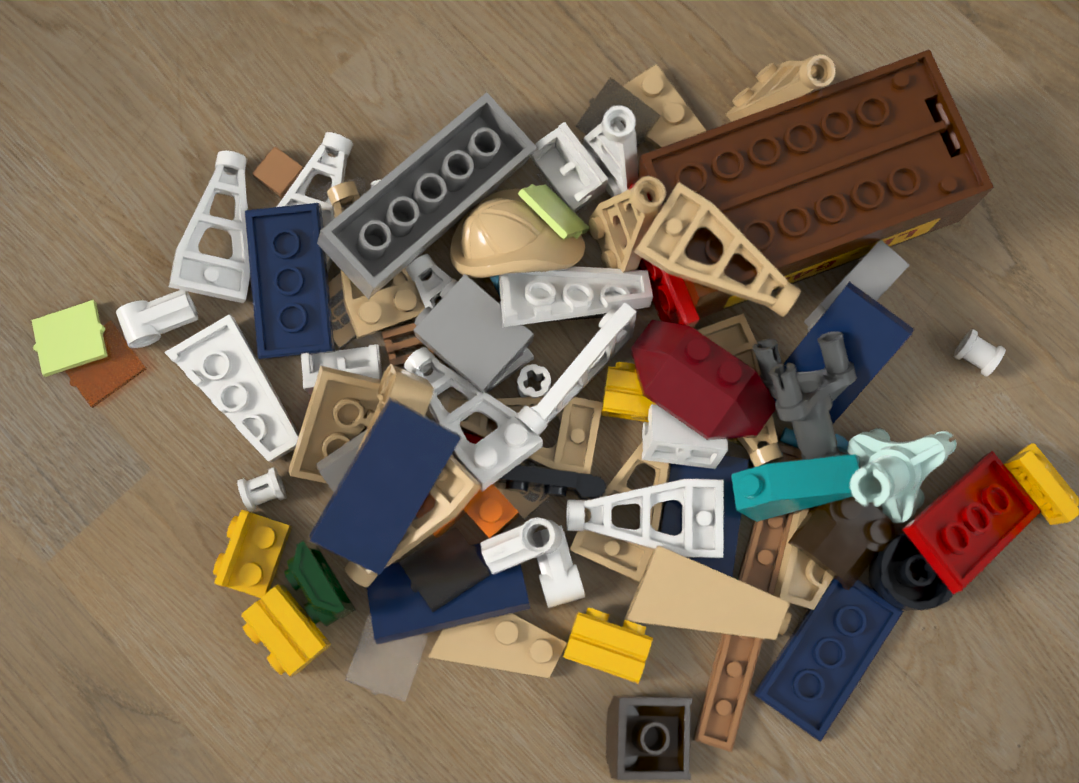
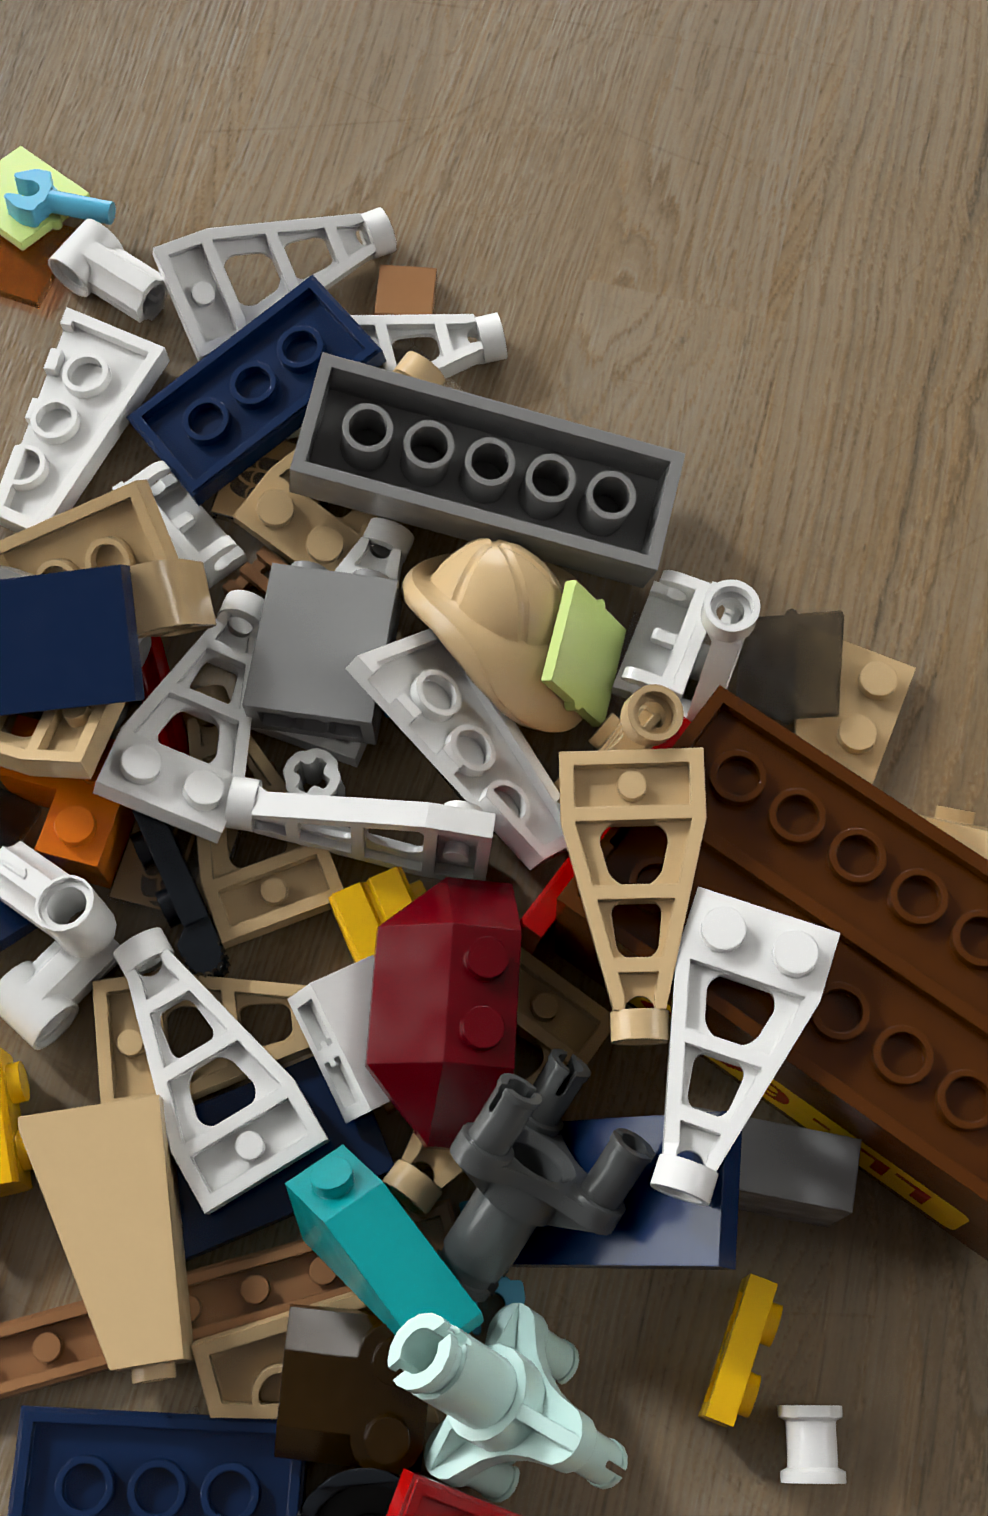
camera: 60 degrees right, 10 degrees down
(89, 322) = (42, 199): none -> medium azure bar
(785, 222) = (759, 951): none -> white plate
(932, 368) = (751, 1322): none -> yellow plate

